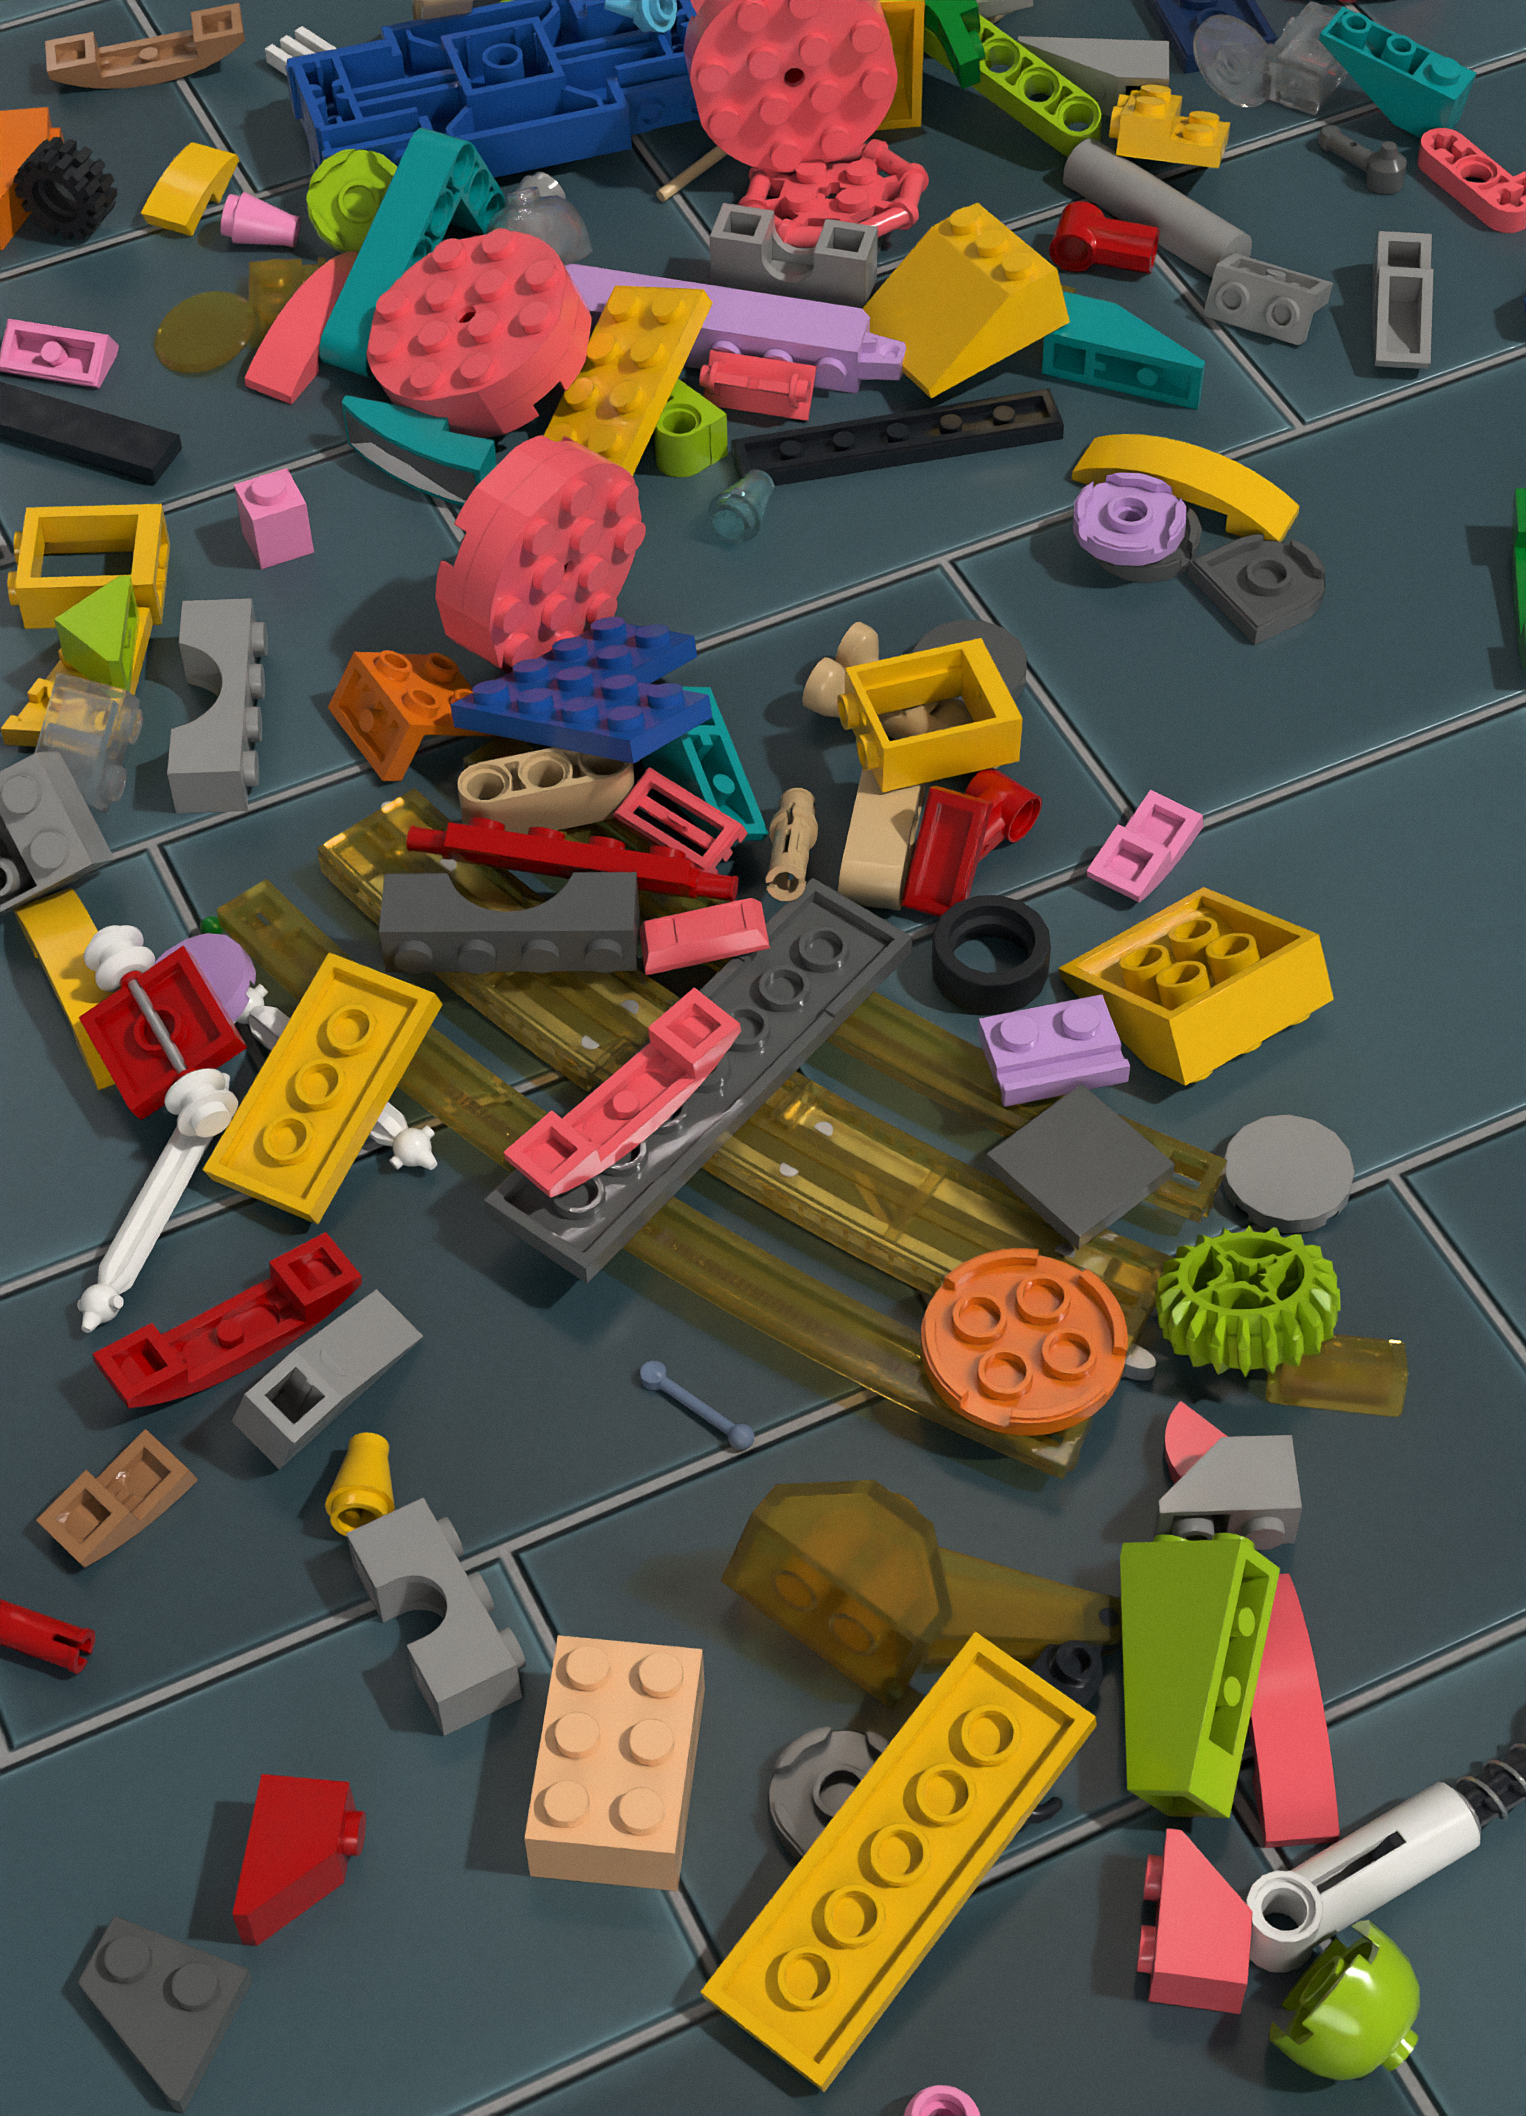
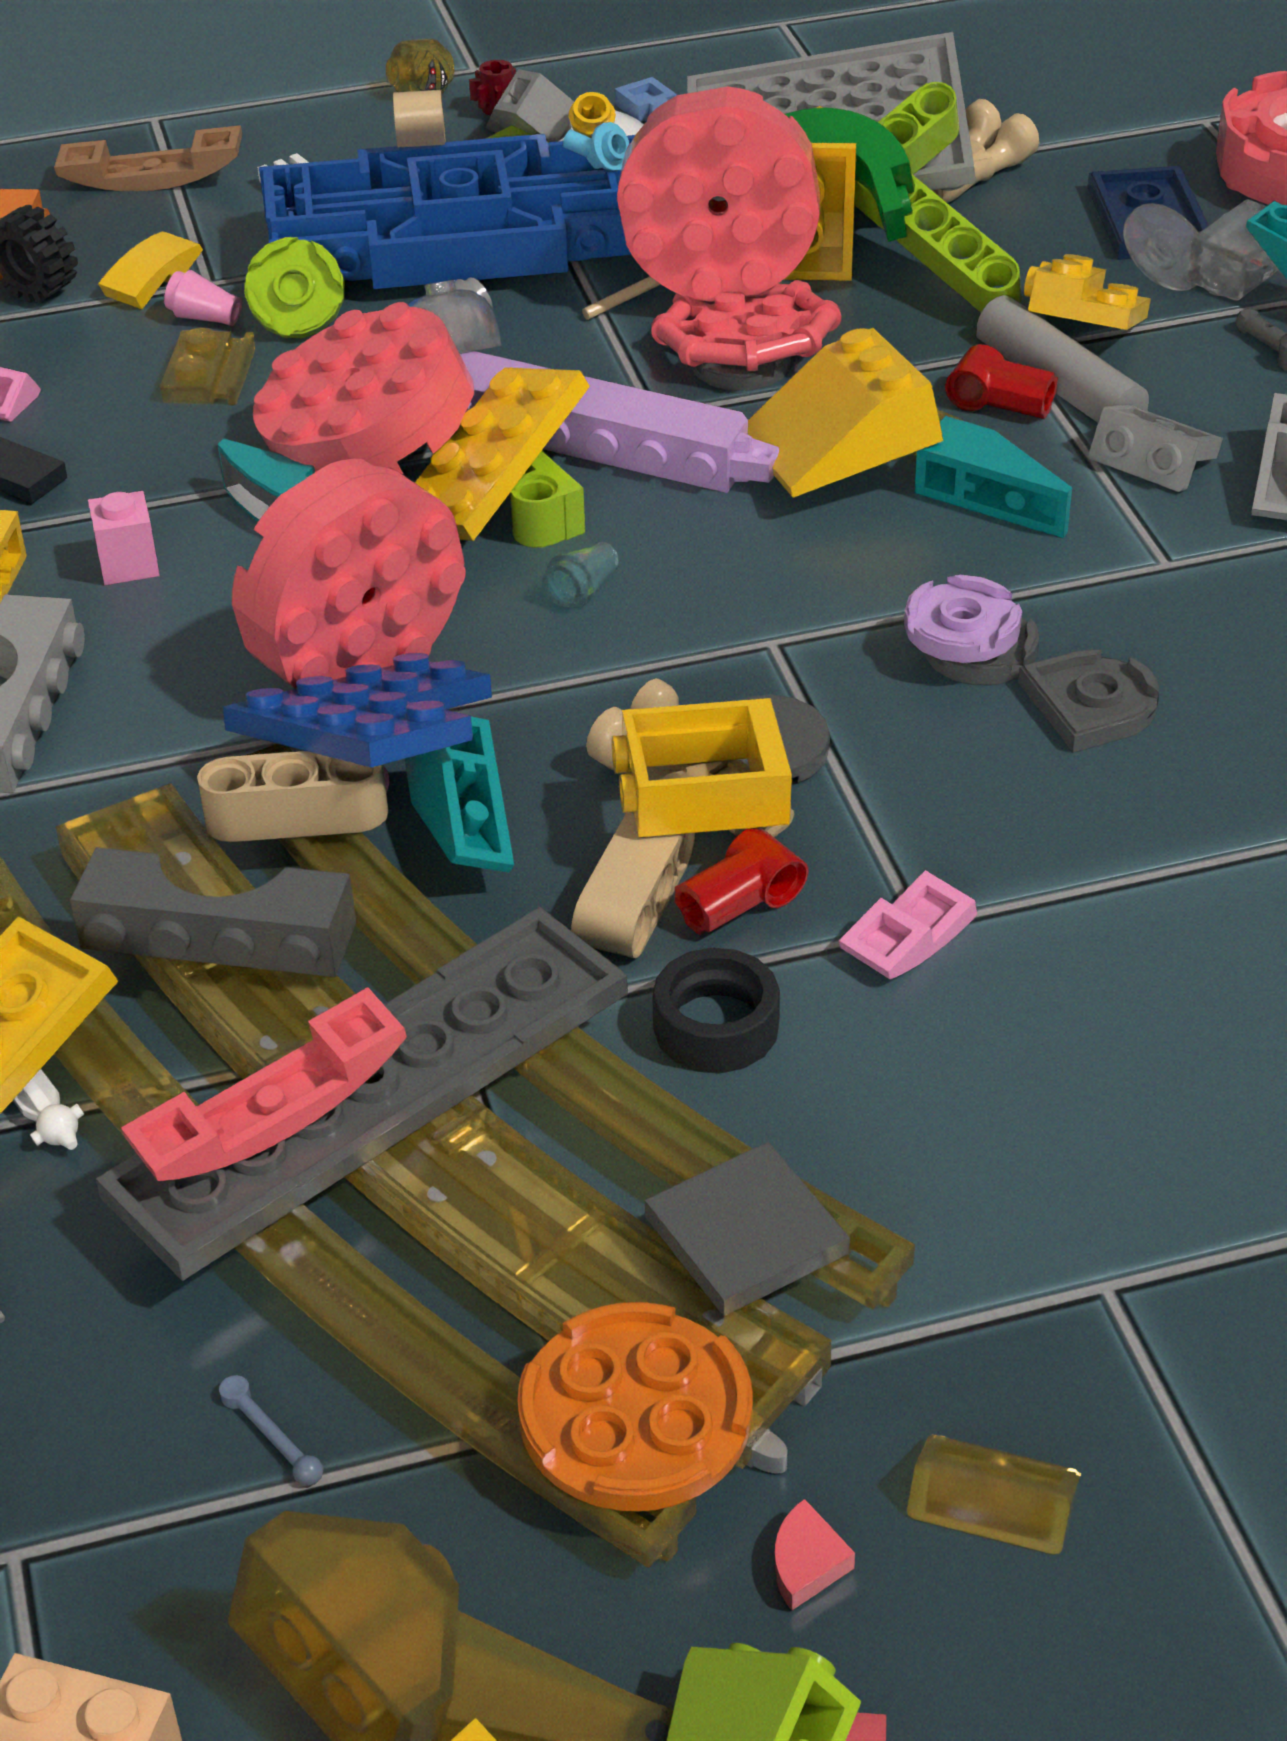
camera: 10 degrees right, 10 degrees down
(204, 331) = (121, 382): clear yellow piece -> none
(290, 349) = (192, 403): coral slope -> none
(395, 700) = (177, 702): orange bracket -> none
(434, 187) = (351, 270): teal beam -> none
(549, 854) = (271, 848): red plate -> none
(703, 935) = (409, 947): coral tile -> none
(717, 849) = (446, 866): coral tile -> none
(753, 258) = (649, 357): light grey arch -> none
(758, 385) = (628, 472): coral hinge -> none
(791, 841) = (537, 868): tan pin -> none
(901, 438) = (759, 532): black tile -> none
(946, 851) = (690, 898): red tile -> none
(1053, 1050) = (748, 1102): lavender plate -> none
(1104, 65) = (1036, 237): light grey slope -> none
(1197, 477) = (1050, 593): yellow slope -> none
(1203, 982) = (936, 1066): yellow slope -> none
(1238, 1489) = (841, 1605): light grey slope -> none
(1248, 1300) = (901, 1397): lime gear -> none
(1288, 1173) = (986, 1272): light grey tile -> none

